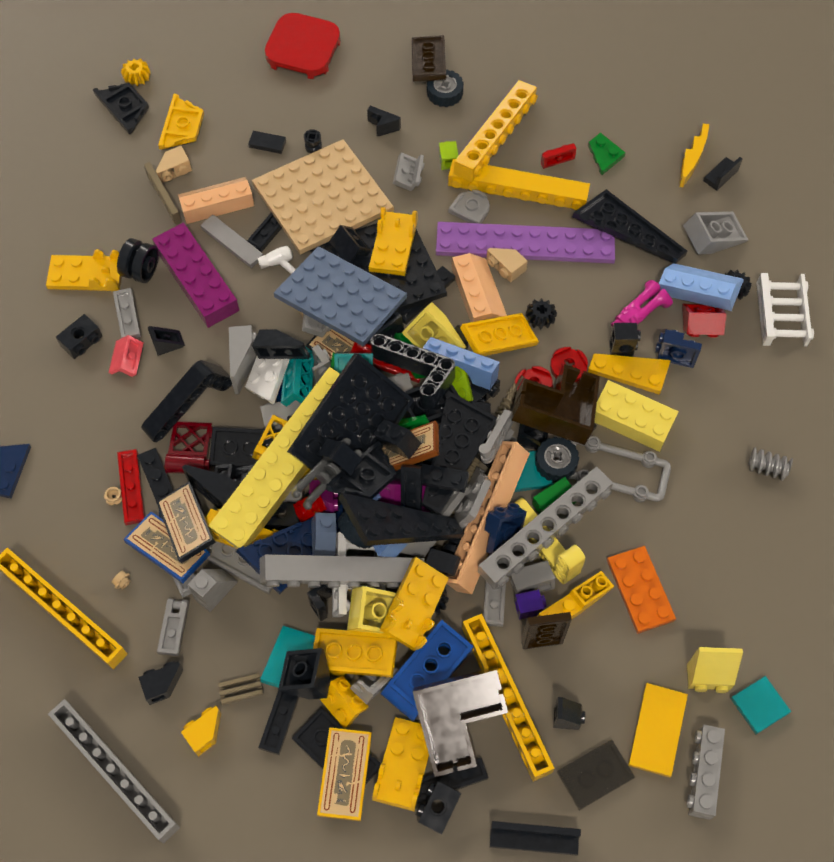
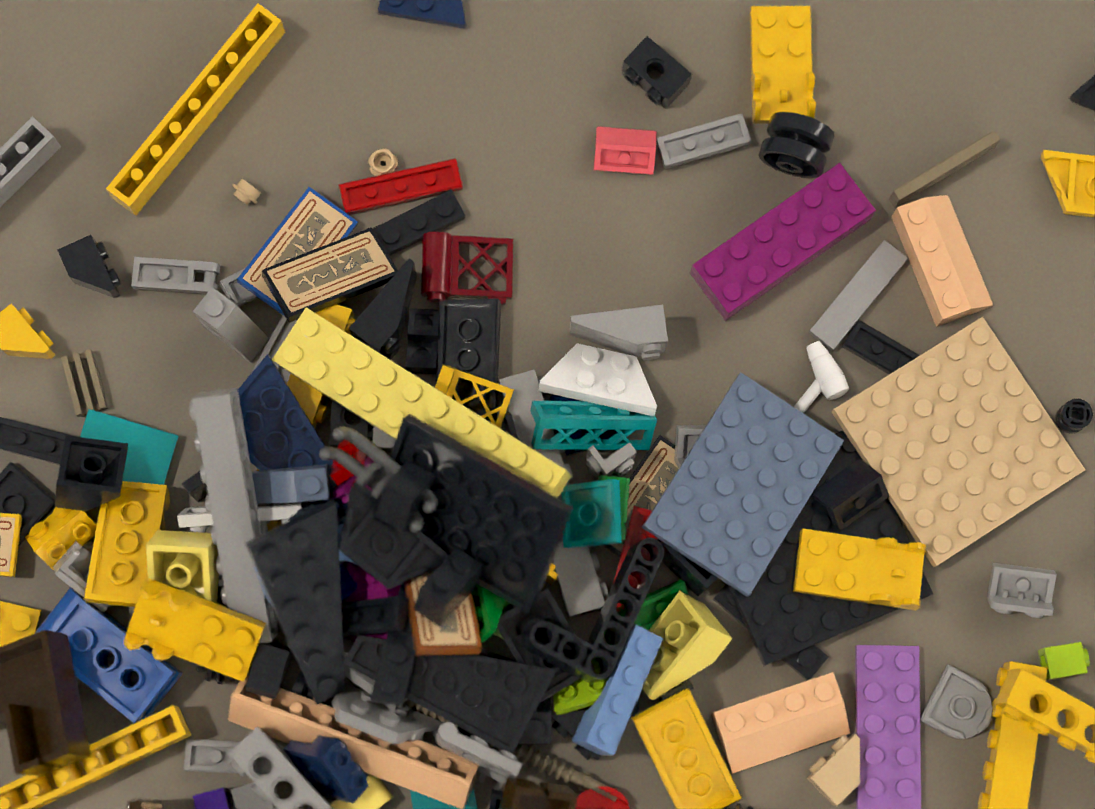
camera: 85 degrees right, 15 degrees up
(165, 339) = (657, 208): black slope -> none
(173, 164) = (1005, 180): tan slope -> none
(183, 395) = (546, 251): black beam -> none
(267, 142) = (1070, 336): black tile -> none
(277, 345) = (637, 380): black slope -> none

